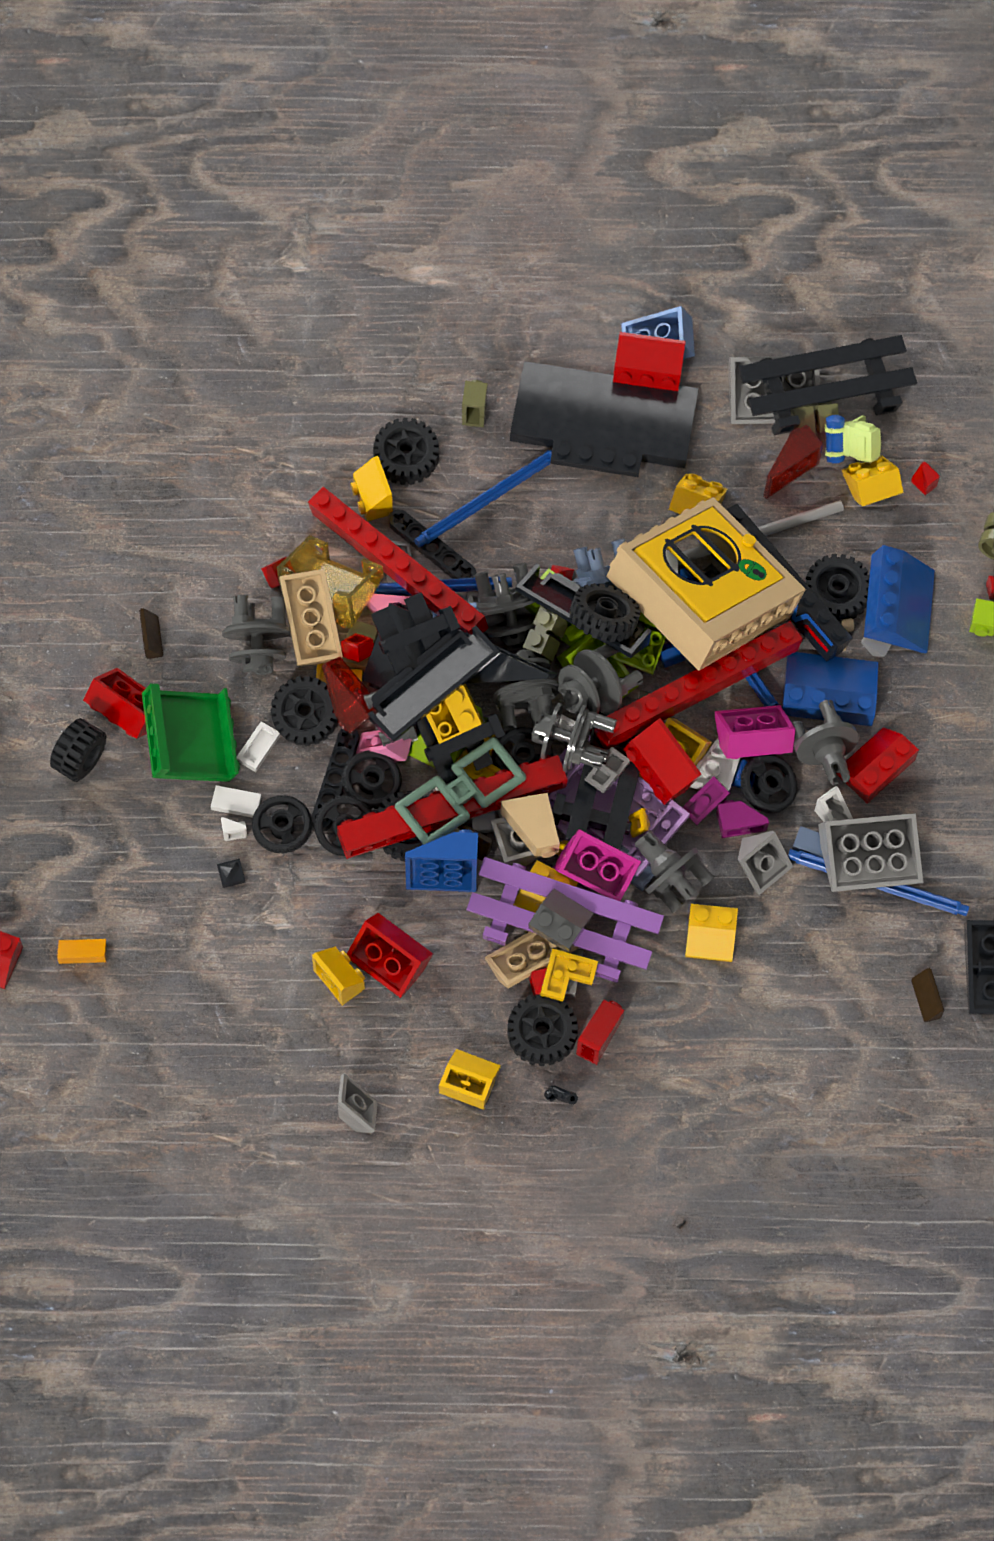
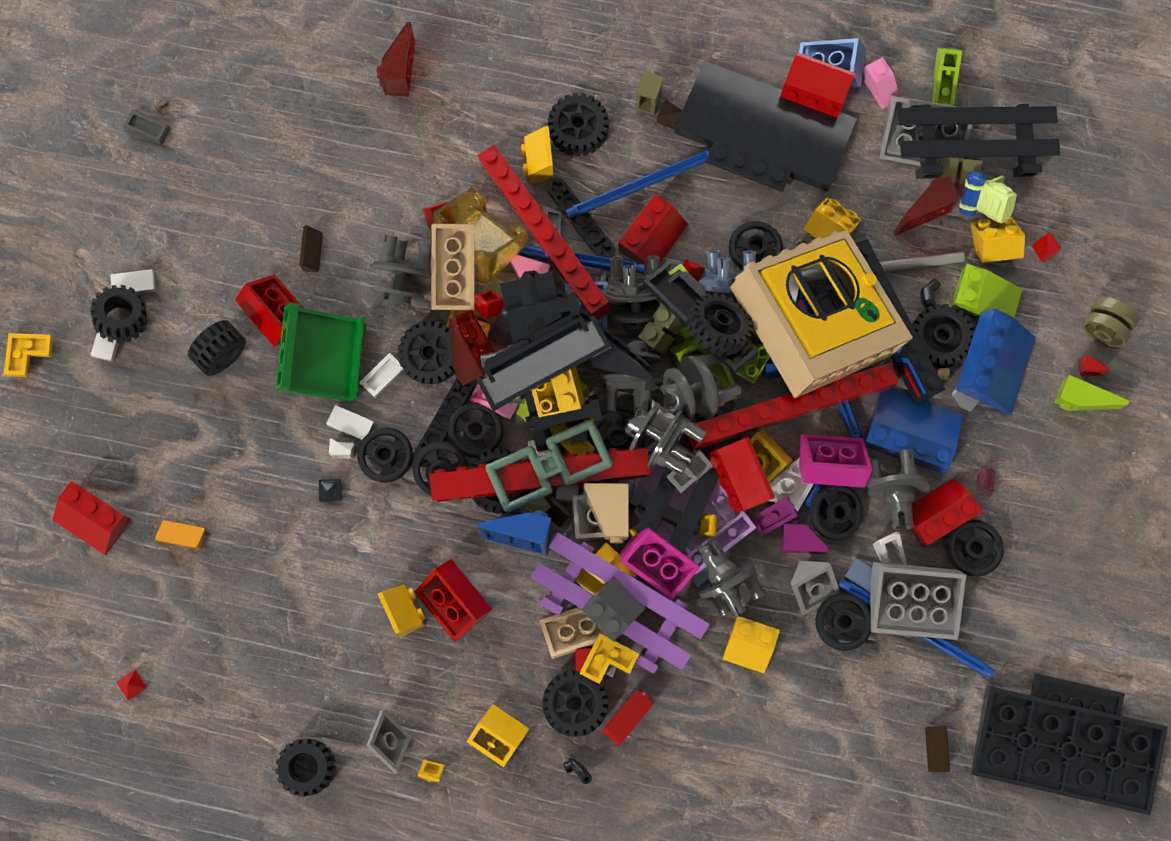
camera: 15 degrees right, 10 degrees up
(66, 1113) = (131, 685): none -> red slope
(199, 432) = (398, 63): none -> clear red slope
(274, 1132) = (287, 761): none -> black tyre
(407, 1130) = (431, 771): none -> yellow slope
(500, 423) = (668, 114): none -> dark brown slope
(511, 542) = (652, 231): none -> red slope
(602, 535) = (738, 241): none -> black wheel
(714, 346) = (880, 81): none -> bright pink slope
(781, 326) = (946, 75): none -> lime slope
(793, 908) = (831, 636): none -> black wheel
(812, 548) = (927, 293): none -> black arm
(867, 532) = (983, 290): none -> lime slope
(904, 777) = (967, 566): none -> black wheel
(916, 719) = (986, 478): none -> clear pink slope

